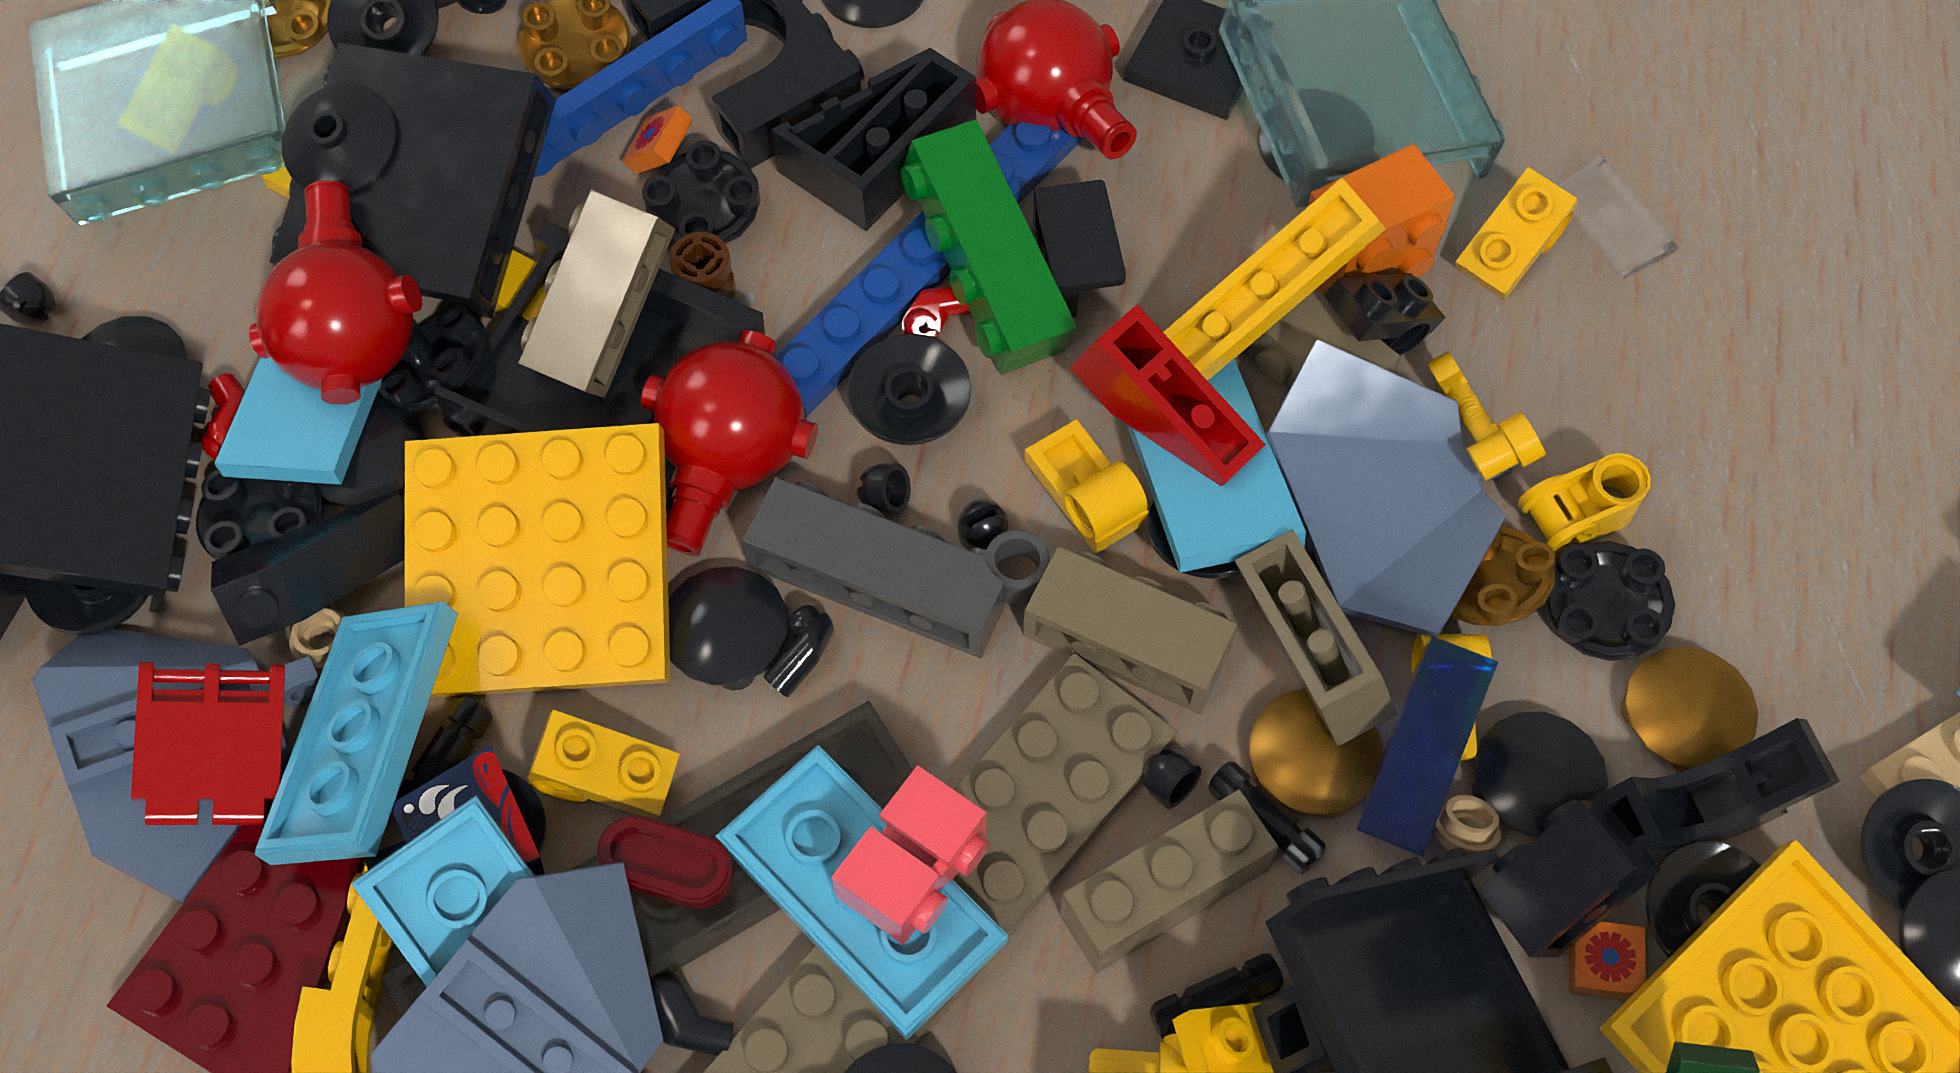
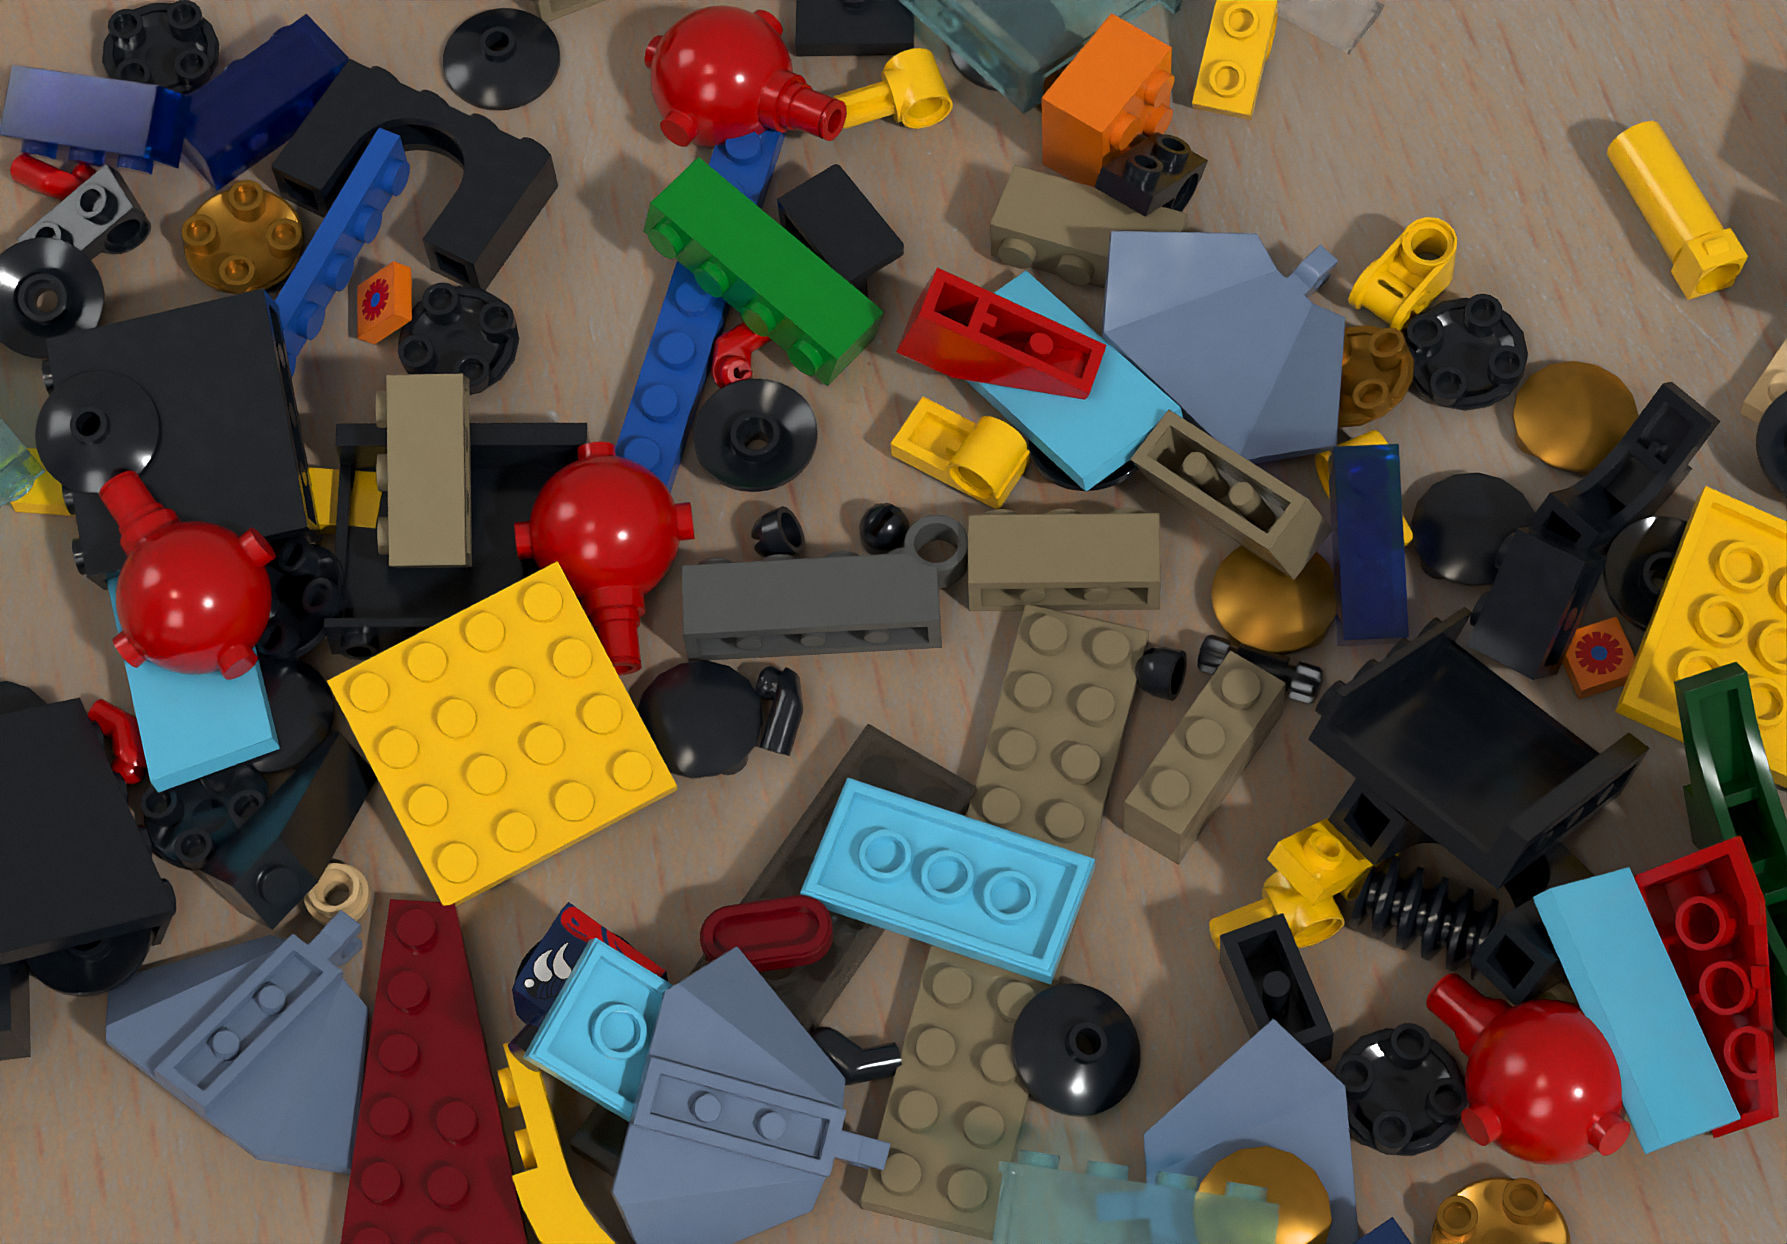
camera: 20 degrees left, 0 degrees up
(207, 744) = (309, 1017): red plate -> none
(357, 736) = (437, 948): medium azure tile -> none
(449, 743) = (508, 941): black axle -> none
(602, 765) = (656, 884): yellow plate -> none
(704, 261) = (492, 392): reddish brown wheel -> none
(857, 146) = (592, 225): black wedge -> none
(901, 872) = (981, 836): coral piece -> none
(1205, 146) = (909, 91): none -> yellow axle
(1257, 978) = (1316, 804): black axle -> none
(1275, 279) = (1046, 191): yellow plate -> none
(1468, 825) = (1433, 596): tan plate -> none
(1498, 444) = (1309, 257): yellow brick -> none
(1881, 553) = (1697, 244): none -> yellow piece

